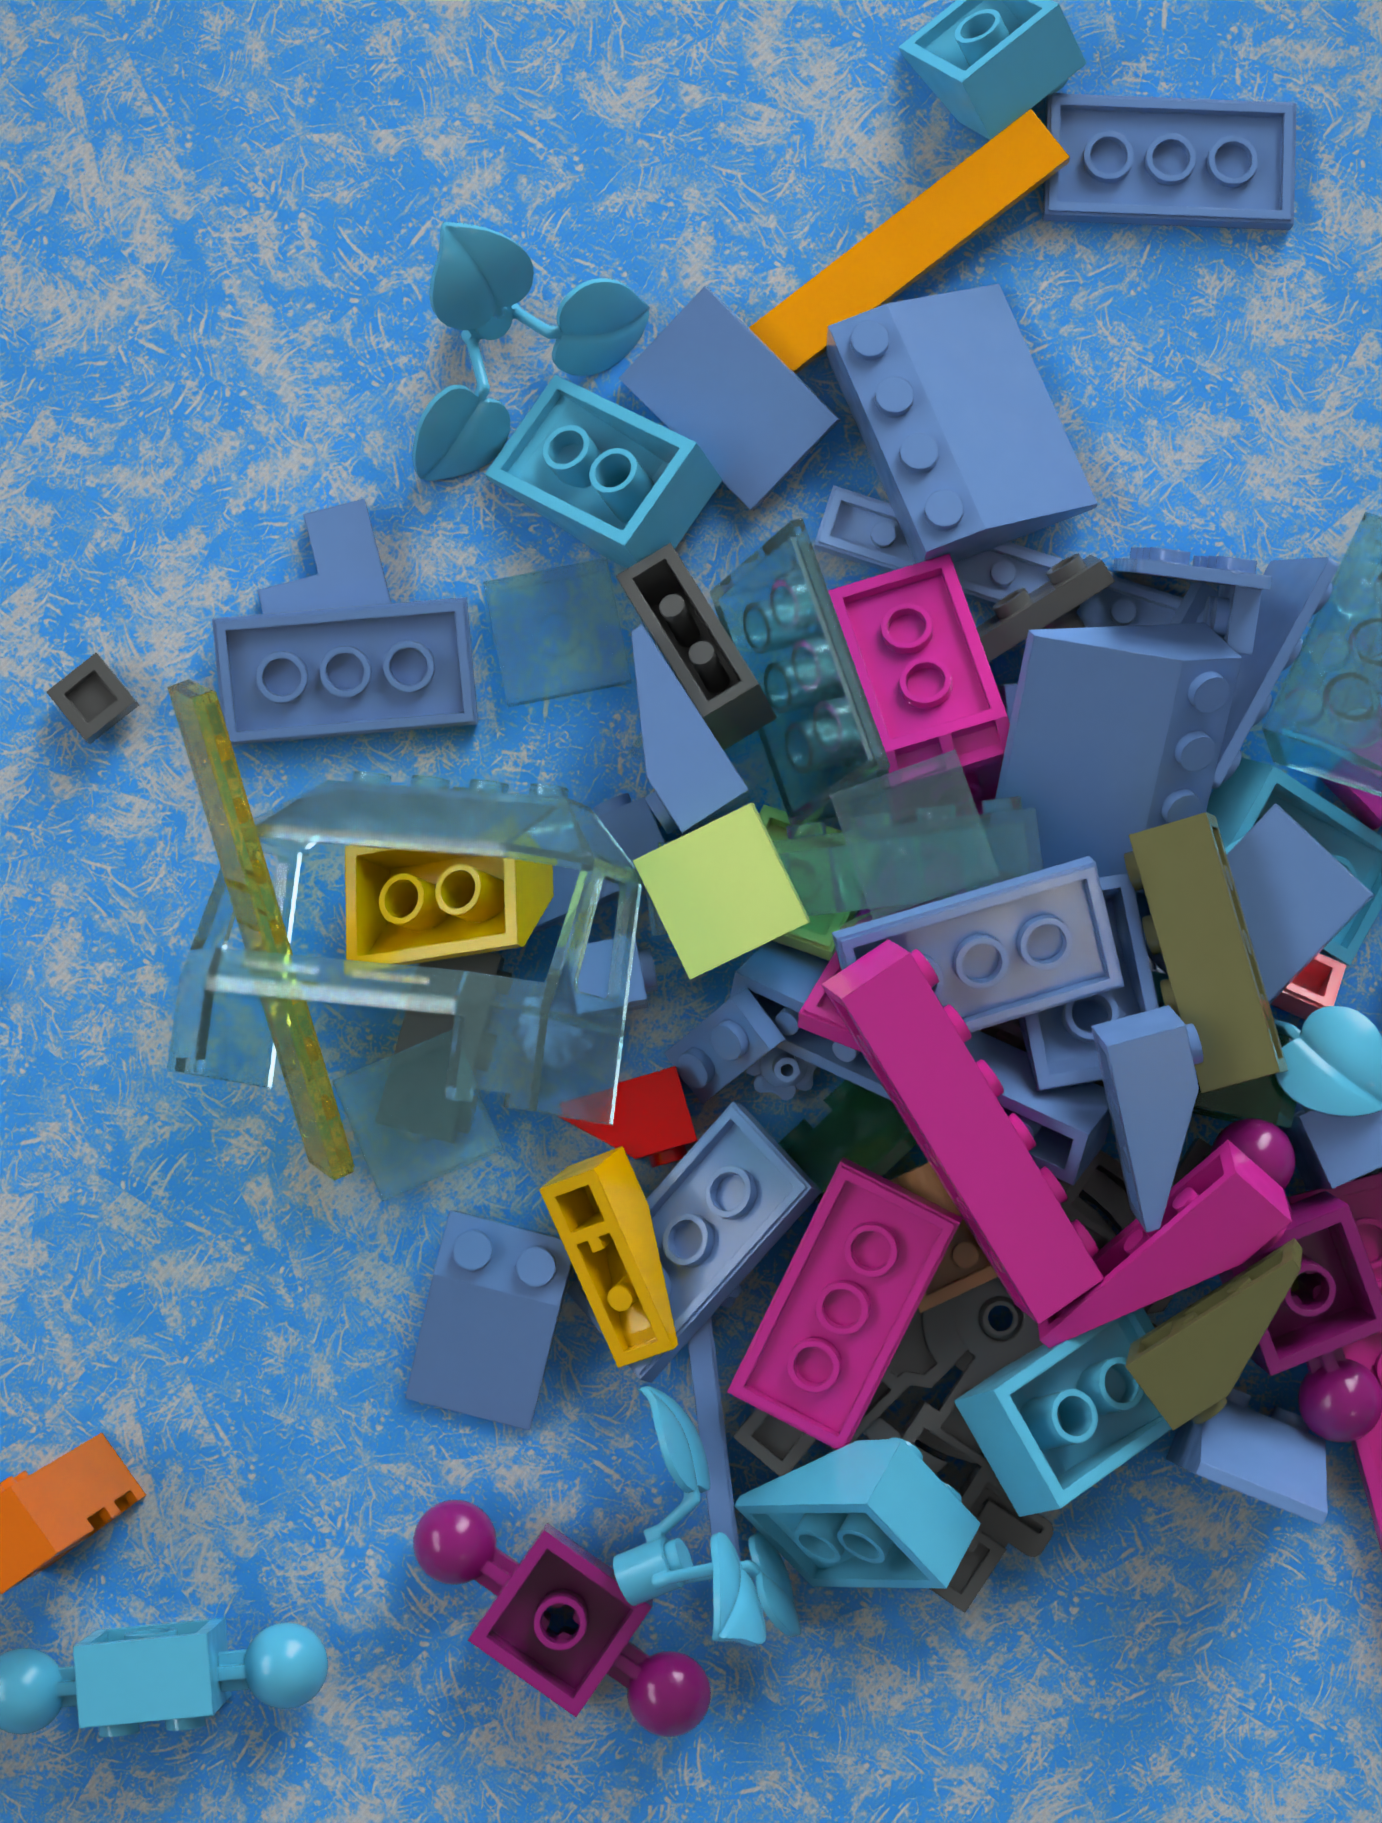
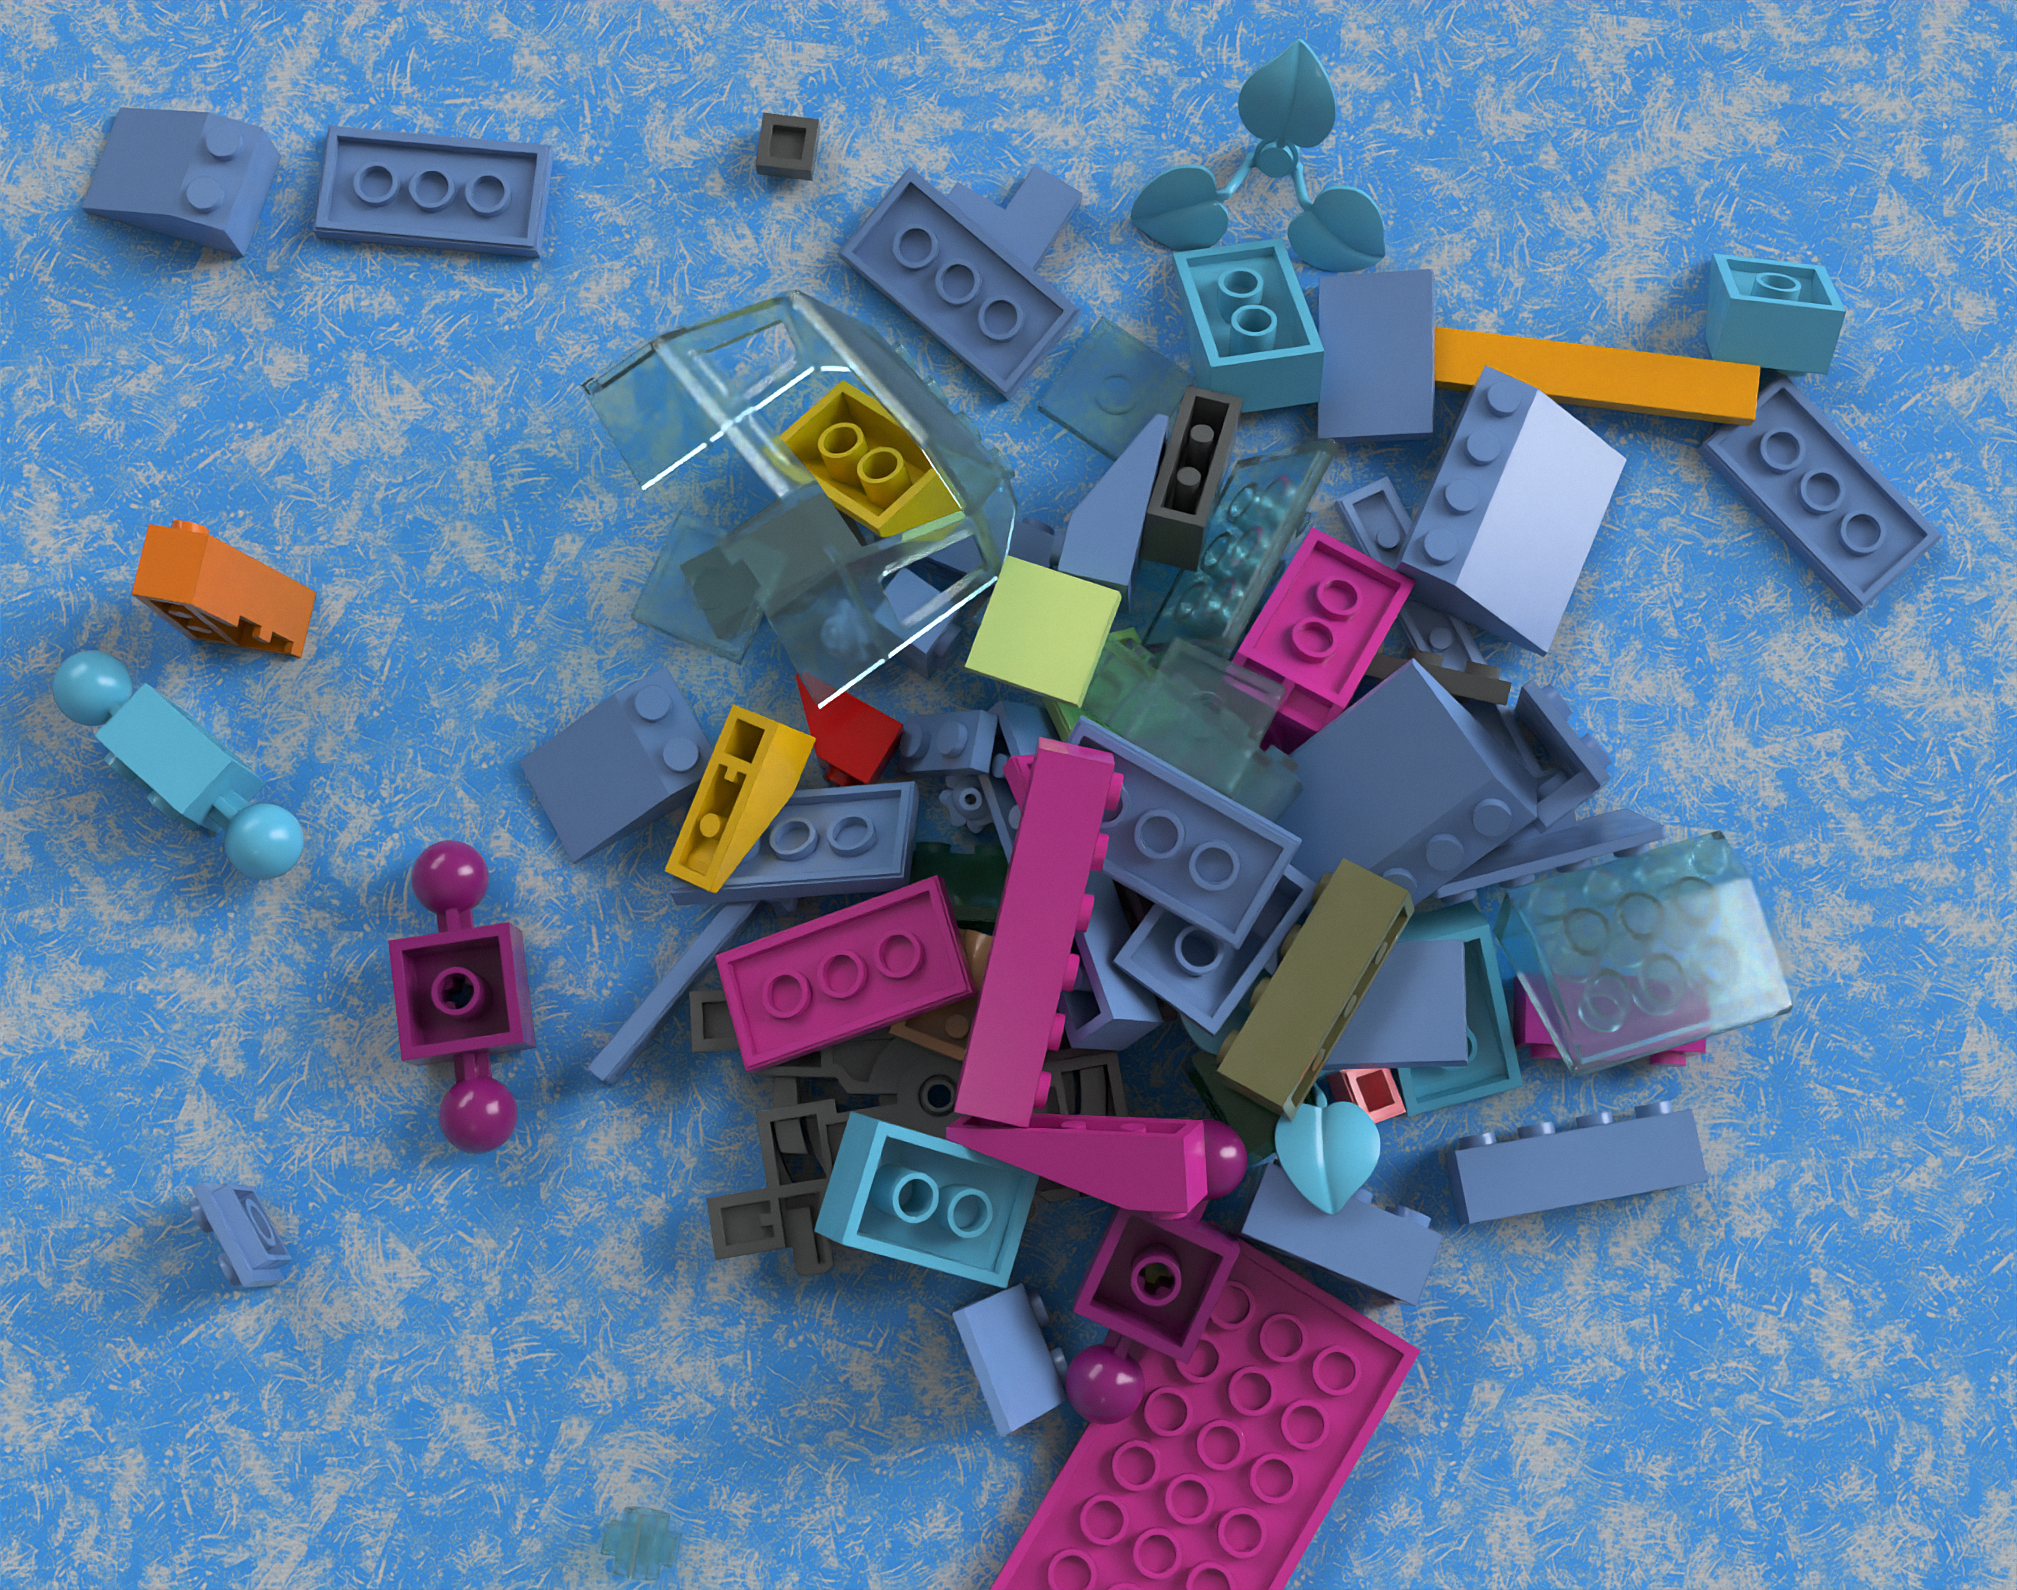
camera: 45 degrees right, 5 degrees down
(260, 921) = (735, 360): clear yellow tile -> none
(667, 1564) = (569, 1064): medium azure plant -> none
(865, 1518) = (716, 1128): medium azure slope -> none
(1150, 1099) = (1182, 1034): medium blue slope -> none
(1201, 1351) = (1040, 1243): olive slope -> none

